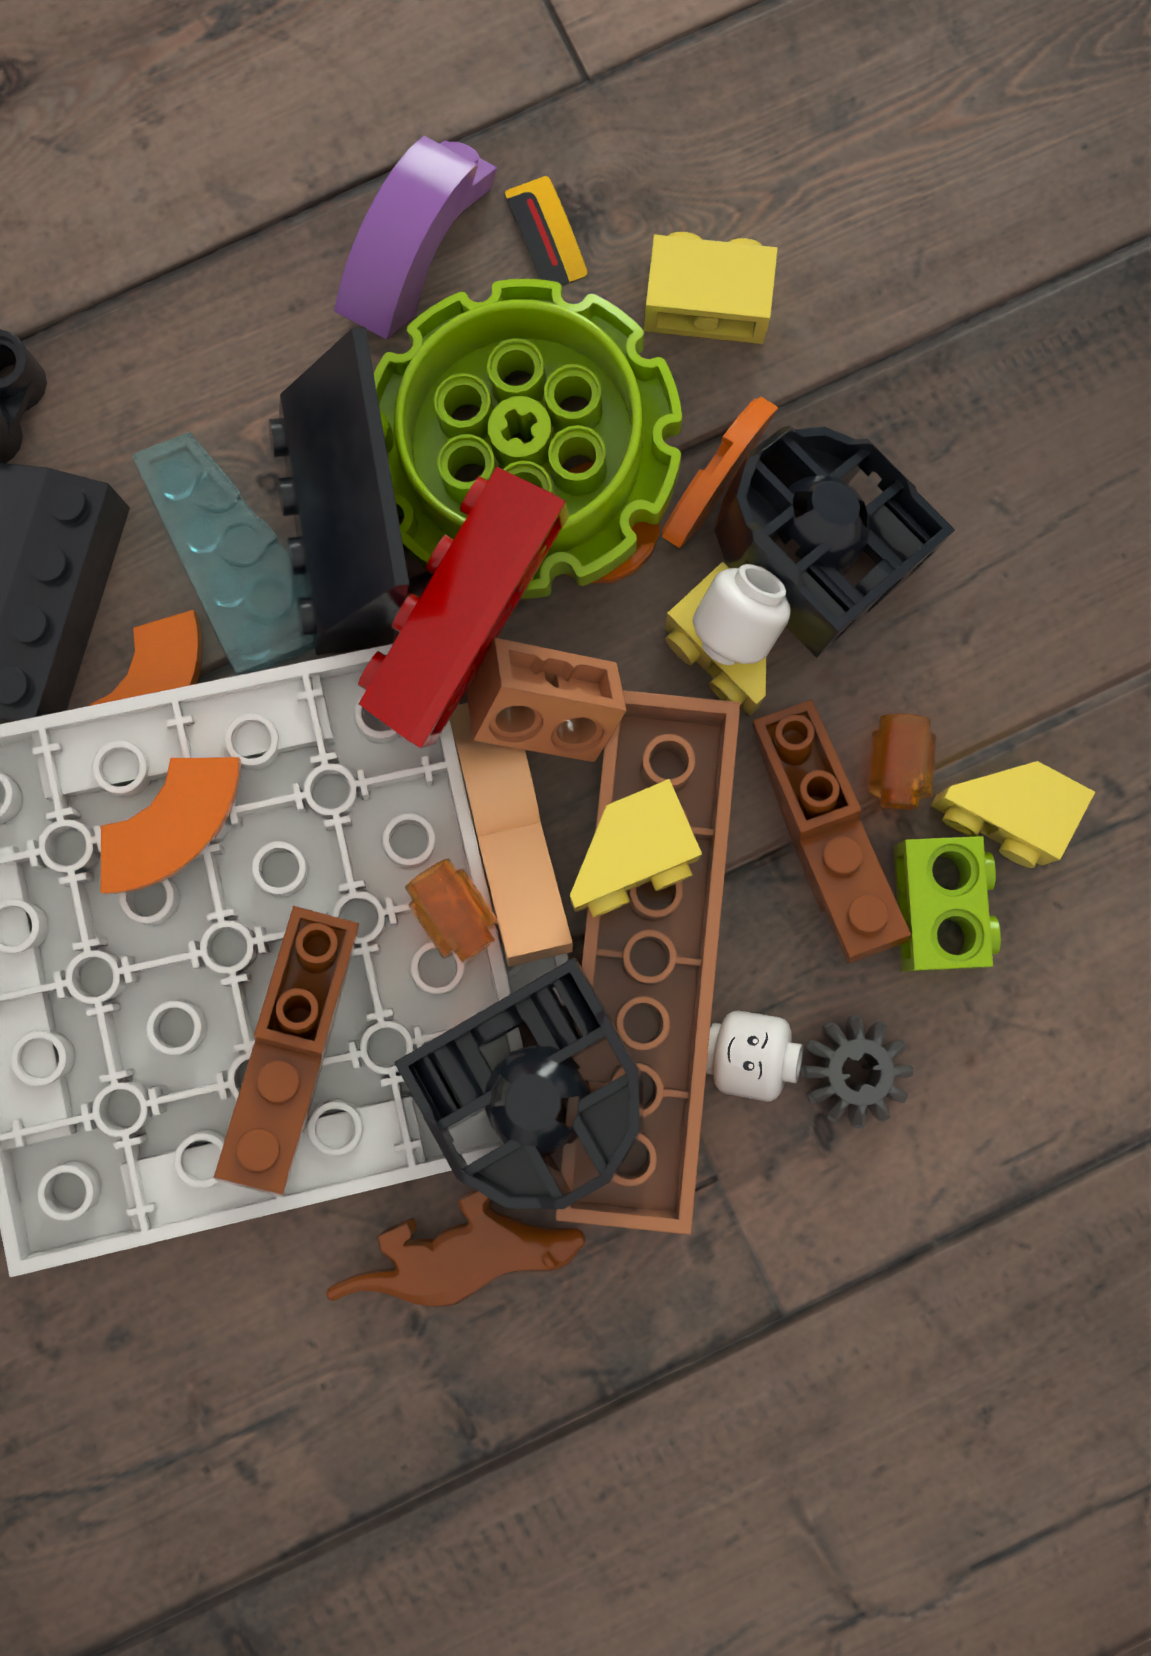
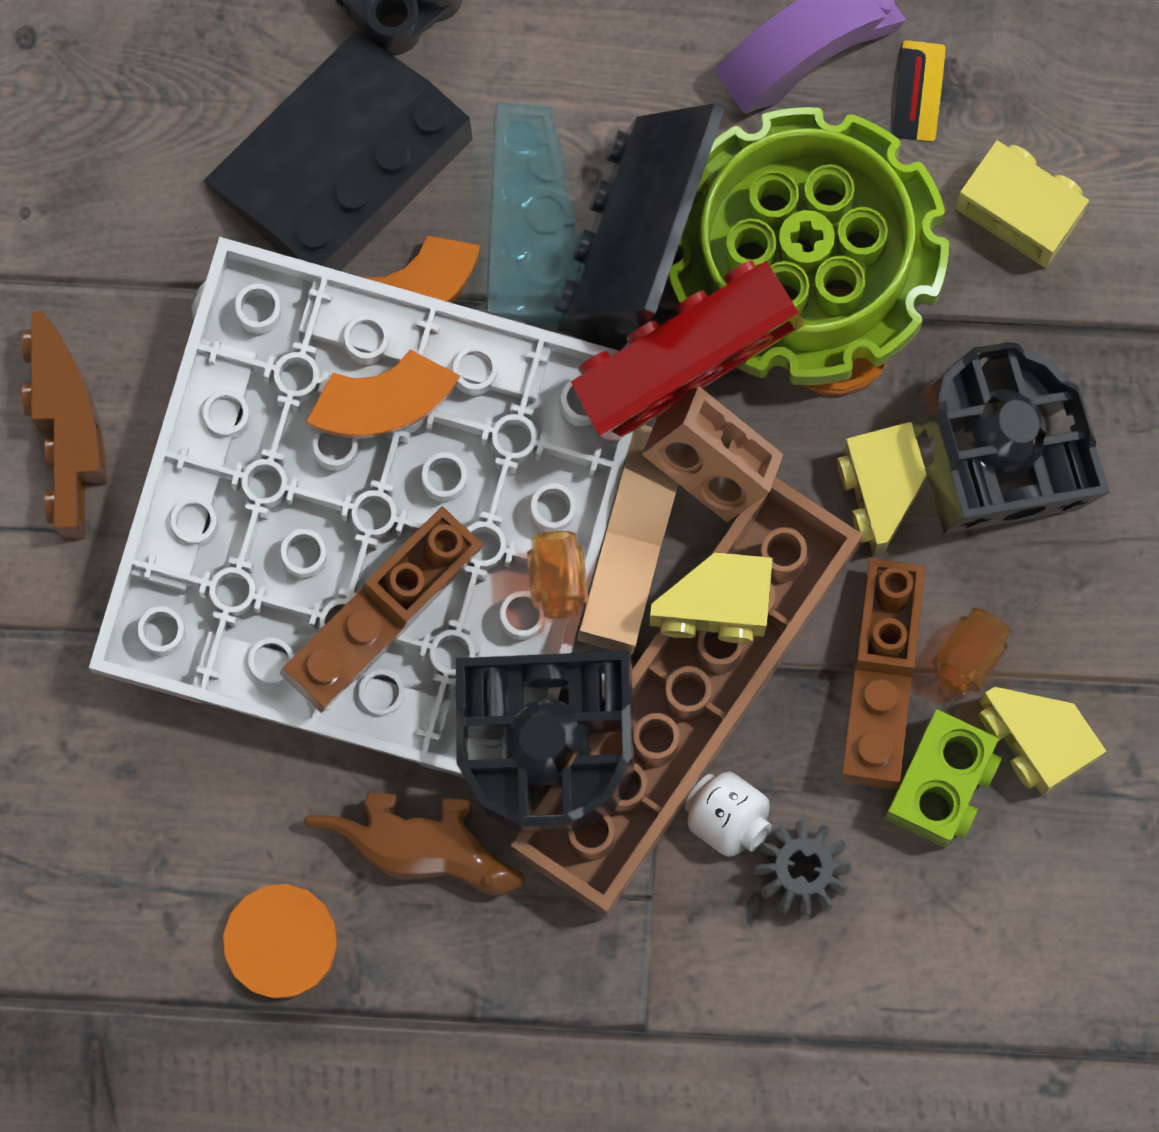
camera: 30 degrees right, 5 degrees down
(369, 1432) = (280, 941): none -> orange tile
(712, 481) = (932, 359): orange tile -> none
(741, 615) = (898, 468): white head -> none

